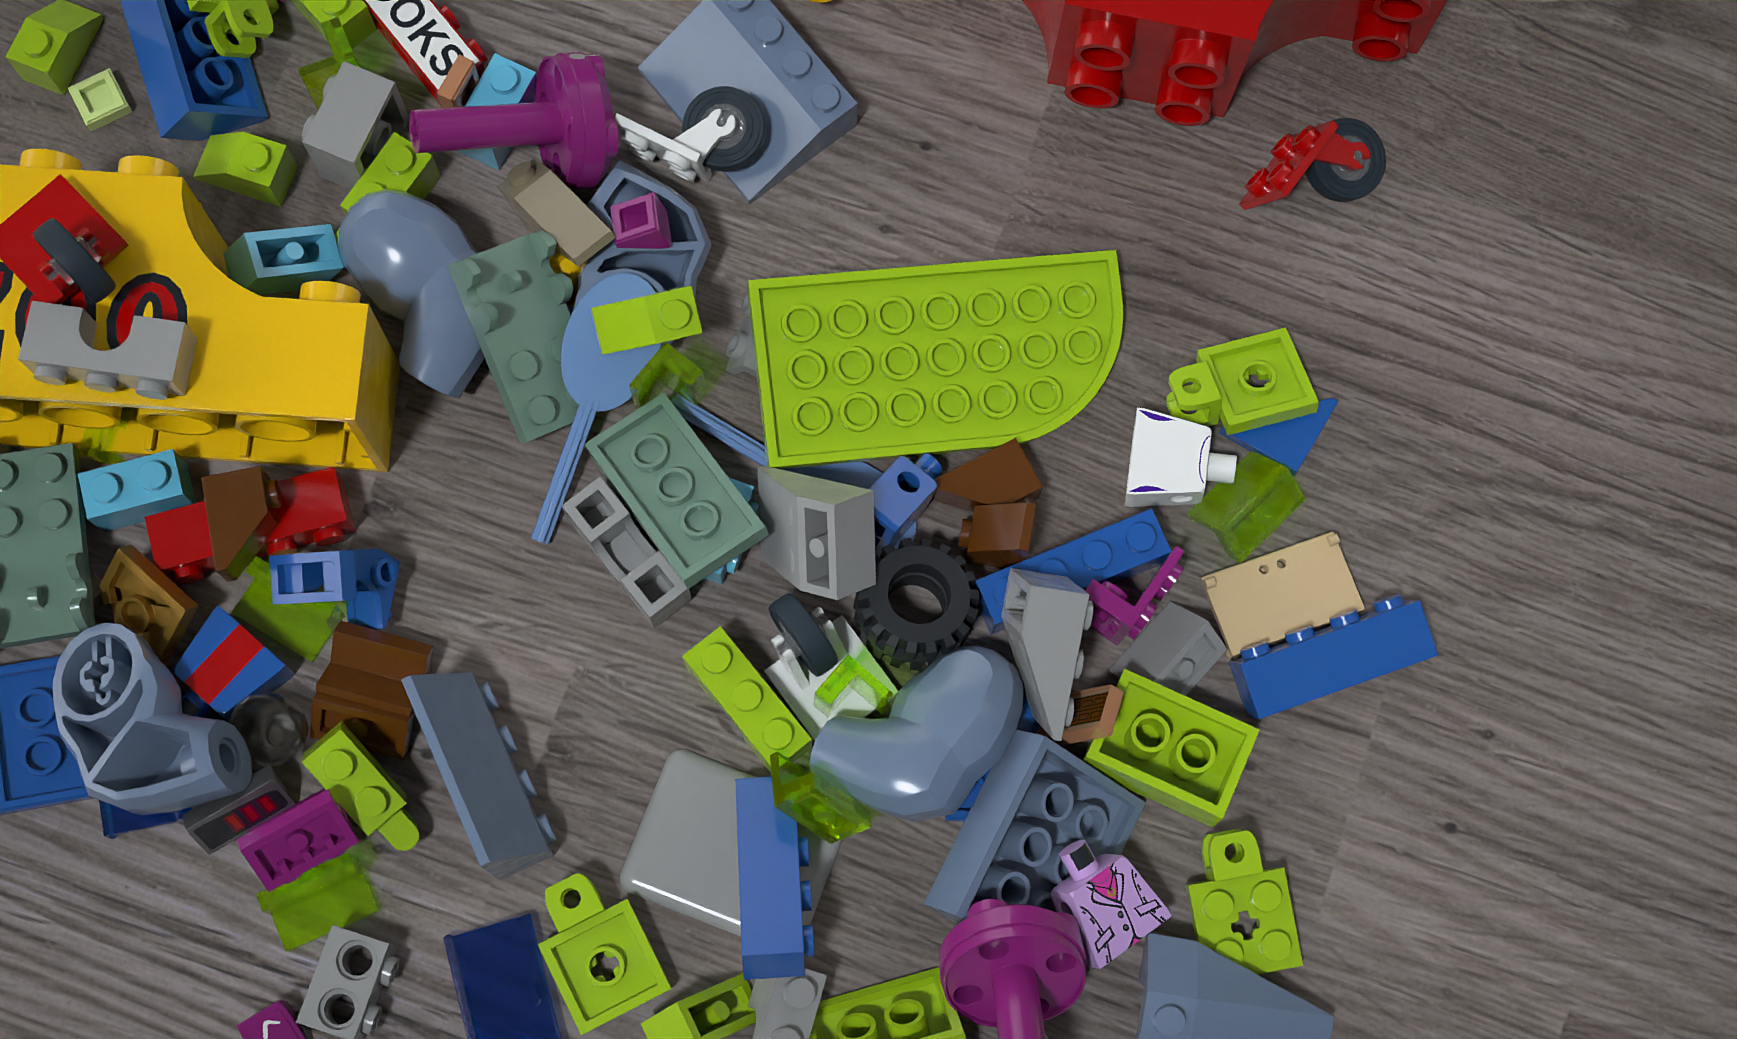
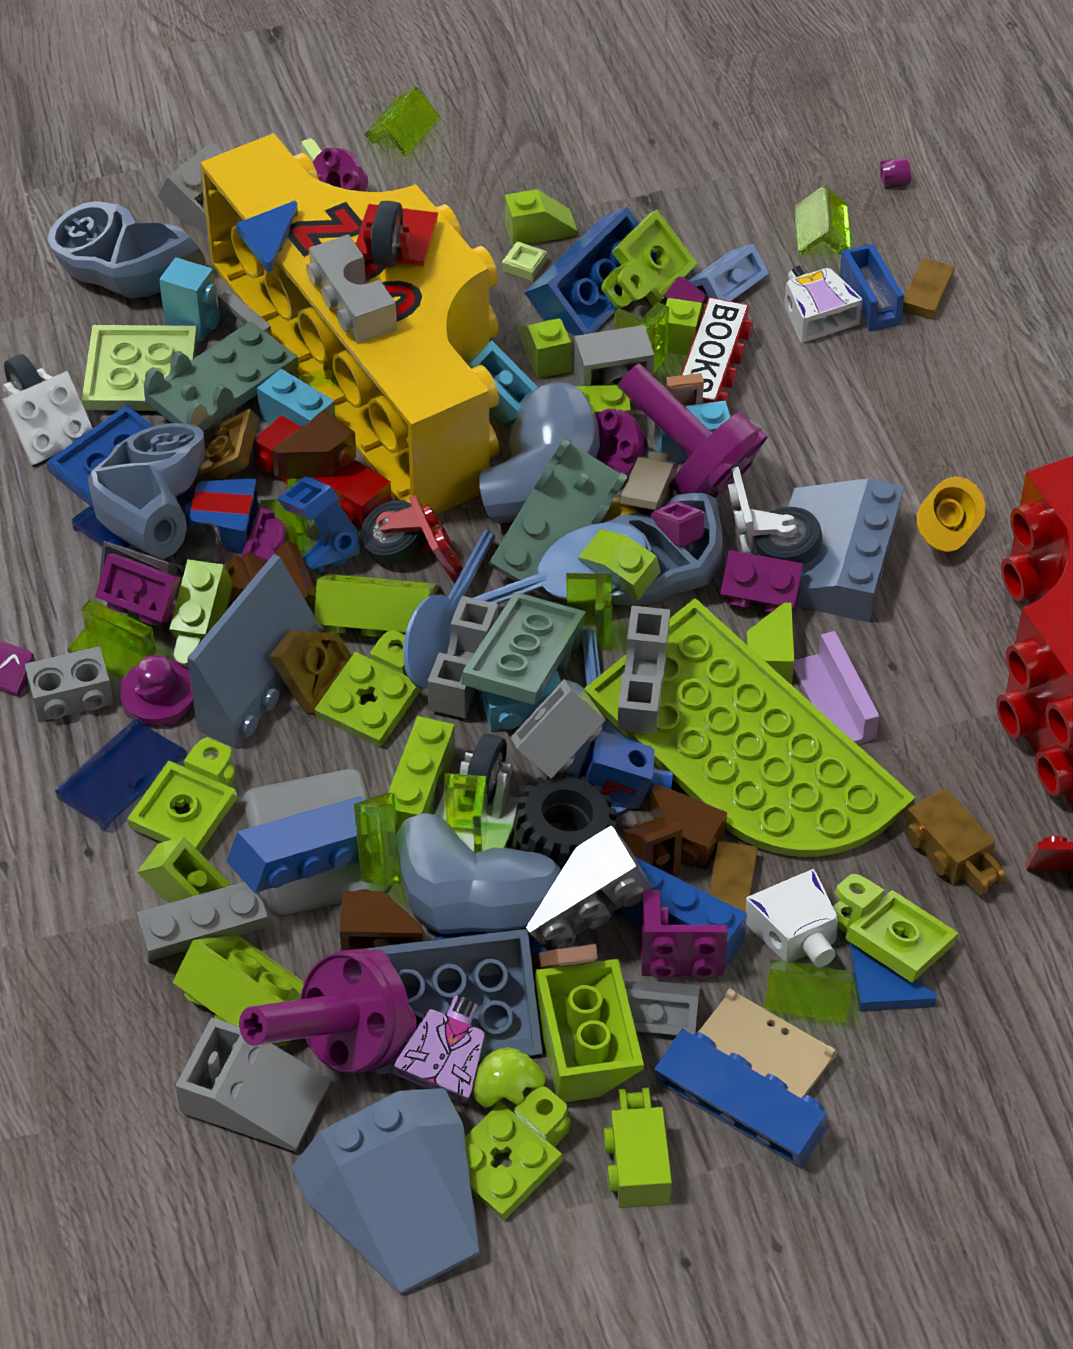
camera: 60 degrees right, 25 degrees down
(297, 644) = (265, 534): none -> magenta tile
(404, 503) = (402, 529): none -> plate
(424, 893) = (157, 691): none -> magenta plate
(466, 196) = (620, 440): none -> magenta plate
(479, 589) = (368, 603): none -> lime slope
(523, 714) = (310, 664): none -> pearl gold plate
(560, 542) = (430, 623): none -> medium blue piece
(590, 647) = (382, 676): none -> lime plate
(754, 194) = (760, 581): none -> magenta bracket
(792, 382) = (644, 670): none -> light grey arch
(833, 239) = (774, 640): none -> lime slope
(892, 865) = (375, 920): none -> reddish brown slope
(927, 223) = (836, 689): none -> lavender panel
(1075, 484) = (733, 873): none -> pearl gold tile
(1175, 863) = (506, 1075): none -> lime hair
(1184, 253) = (953, 842): none -> pearl gold brick
(1321, 791) = (639, 1152): none -> lime brick

